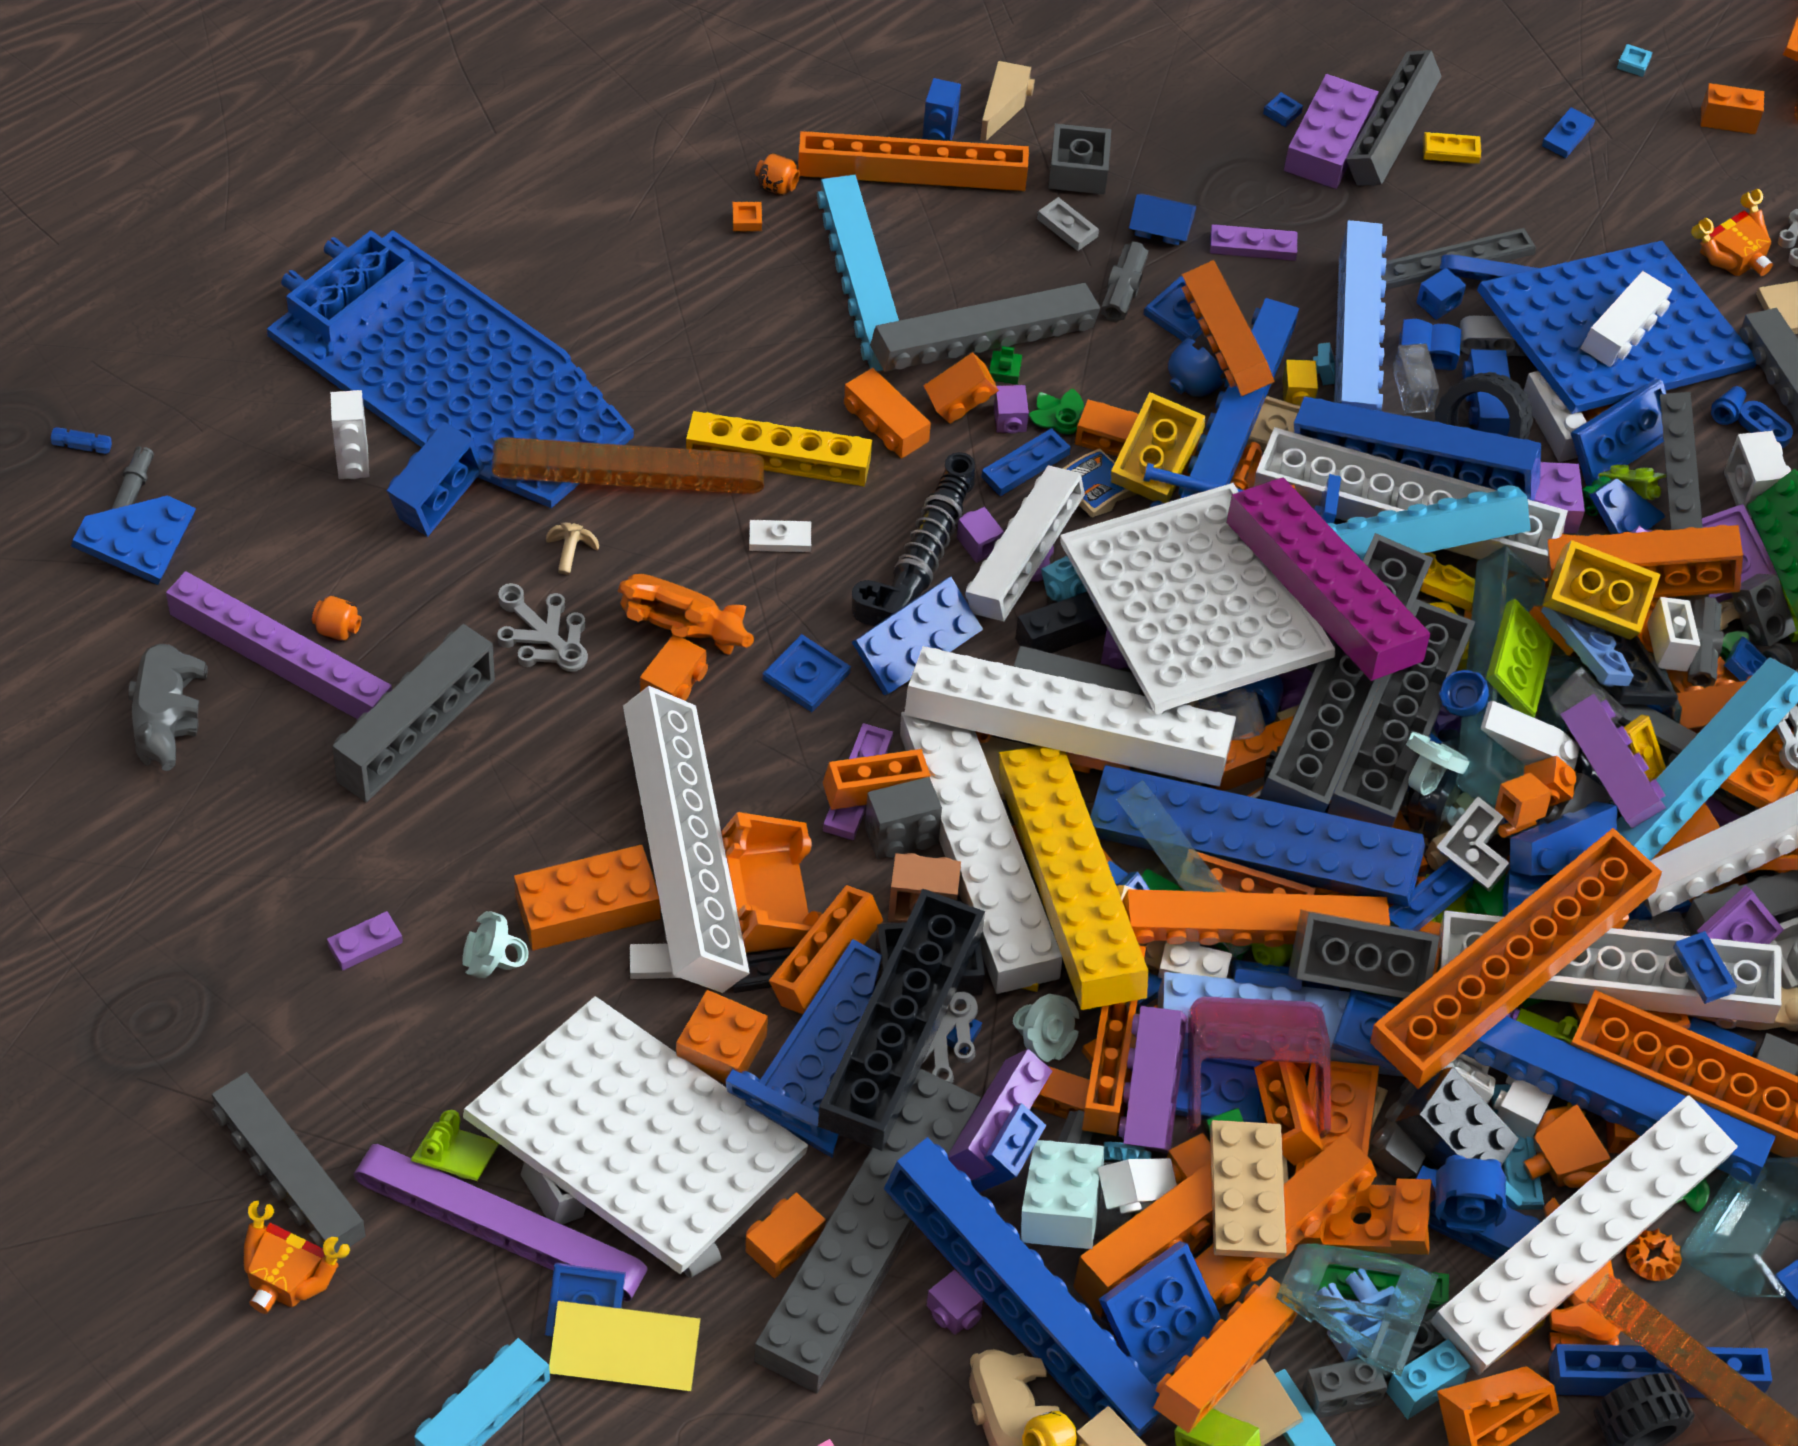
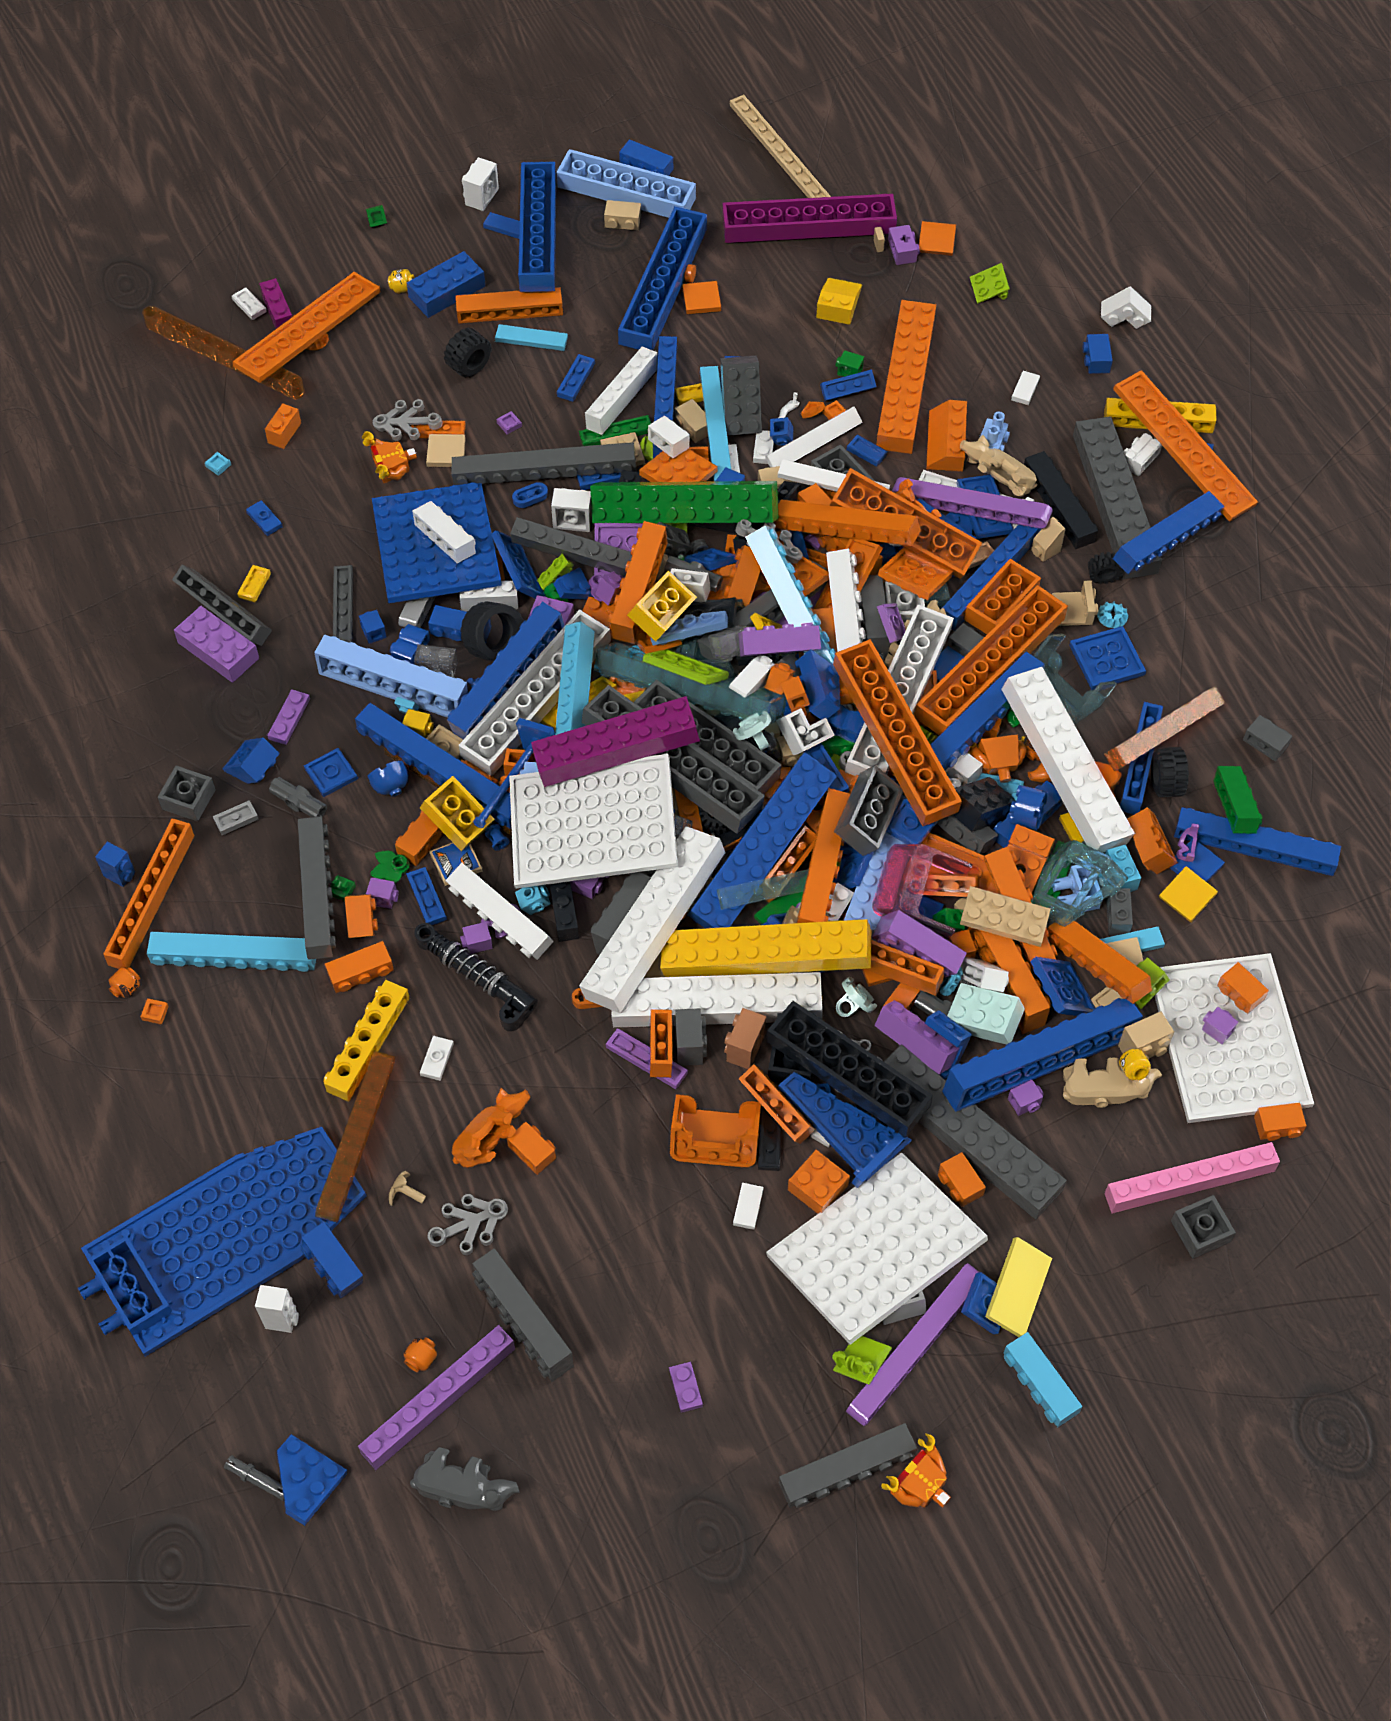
camera: 70 degrees left, 5 degrees up
(81, 440) = (198, 1507): blue axle -> none
(487, 946) = (718, 1306): light aqua tile -> none
(587, 897) = (693, 1239): orange brick -> none
(685, 841) = (671, 1167): white brick -> none
(806, 673) = (551, 1069): blue tile -> none
(932, 620) = (548, 994): plate -> none
(1006, 96) = (105, 821): tan slope -> none
(1227, 329) = (374, 746): orange brick -> none
(1283, 109) = (182, 666): blue tile -> none
(1464, 693) = (711, 699): blue hair -> none
(1480, 268) = (366, 593): blue beam -> none
(1705, 967) = (924, 644): blue plate -> none
(1728, 406) = (510, 508): blue cone -> none

